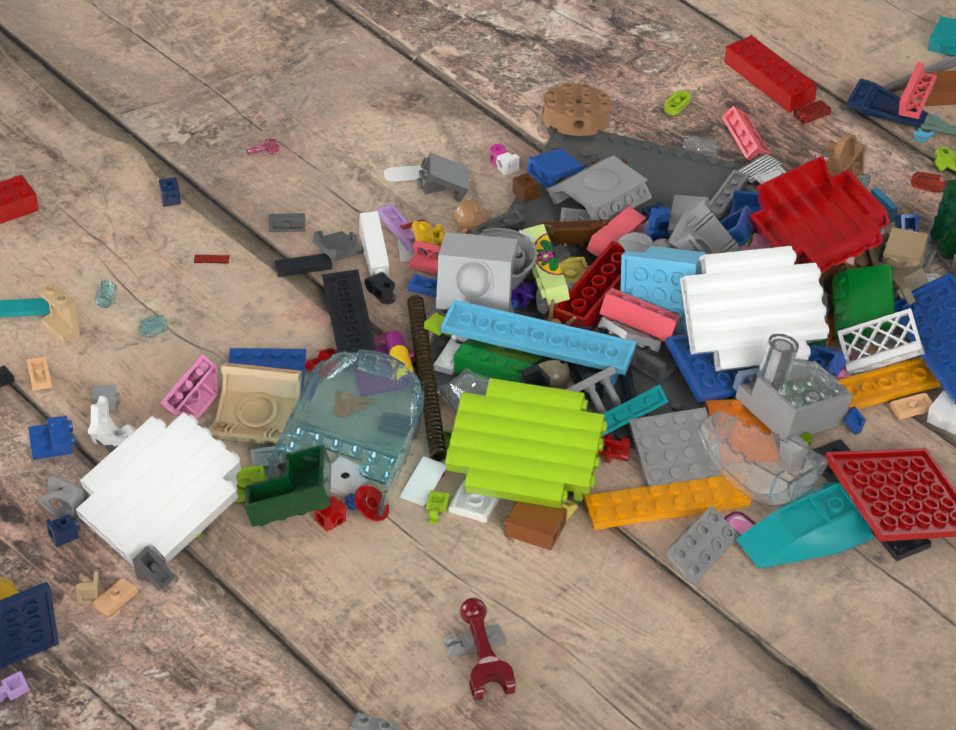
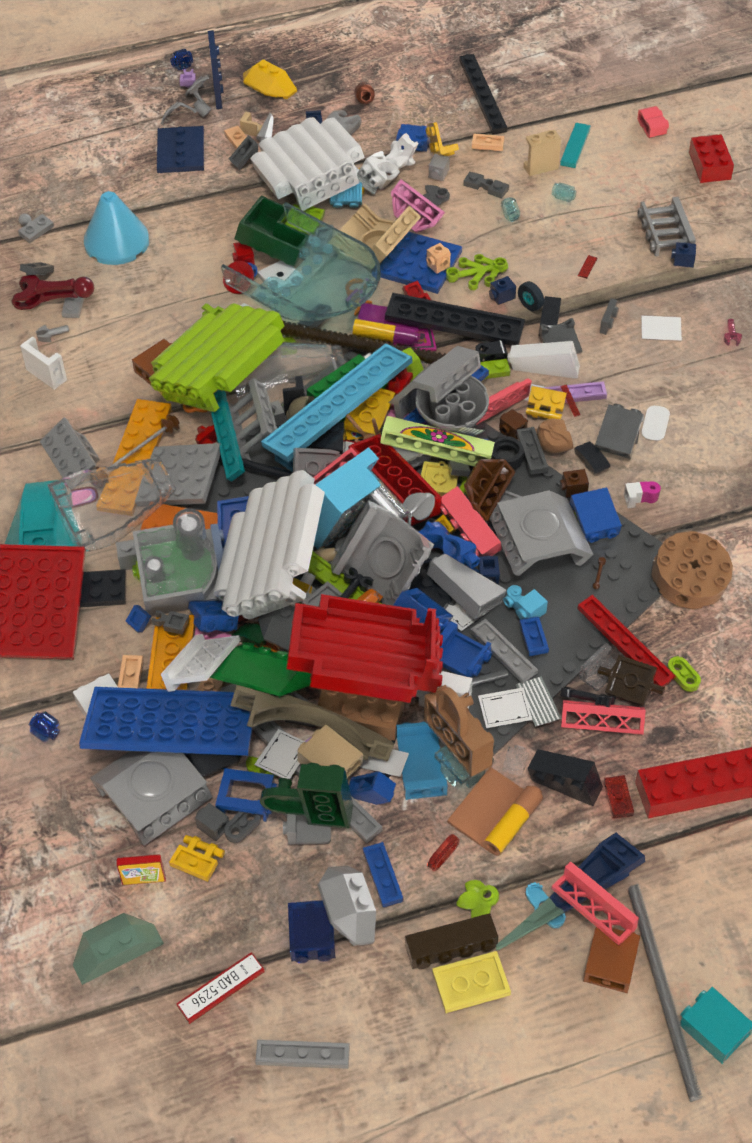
camera: 115 degrees right, 10 degrees up
(68, 619) = (200, 106): none -> light grey plant
(72, 396) = (436, 145): none -> yellow bracket
(104, 573) = (267, 128): none -> light grey bar
(110, 369) = (476, 180): none -> dark grey plate
(116, 348) = (498, 189): none -> dark grey plate
(126, 200) = (679, 219): none -> light grey fence
(151, 393) = (436, 194): none -> dark grey plate
(158, 646) = (180, 149): none -> dark blue plate
(246, 316) = (496, 266): none -> lime plant
(272, 345) = (438, 258): none -> light nougat brick
(277, 194) = (661, 328): none -> white sticker
(286, 300) = (502, 290): none -> dark blue brick
(291, 273) = (530, 296): none -> black bush
(355, 637) = (115, 232): none -> medium azure cone
(401, 286) = (497, 368): none -> lime plate
(452, 683) = (36, 268): none -> dark grey plate
(481, 193) = (593, 457): none -> black slope
(538, 641) = (44, 334): none -> light grey bar
(597, 620) = (46, 369): none -> white panel
(621, 479) = (167, 425): none -> axle
(671, 133) = (623, 638): none -> red plate
(674, 184) = (526, 606): none -> medium azure brick
(703, 178) = (534, 636): none -> blue plate
(707, 121) = (631, 680): none -> dark brown plate
(733, 136) = (598, 699): none -> black bar
(818, 132) = (566, 775): none -> black wedge
(850, 383) = (173, 622): none -> dark grey plate
(885, 167) = (495, 811): none -> nougat door

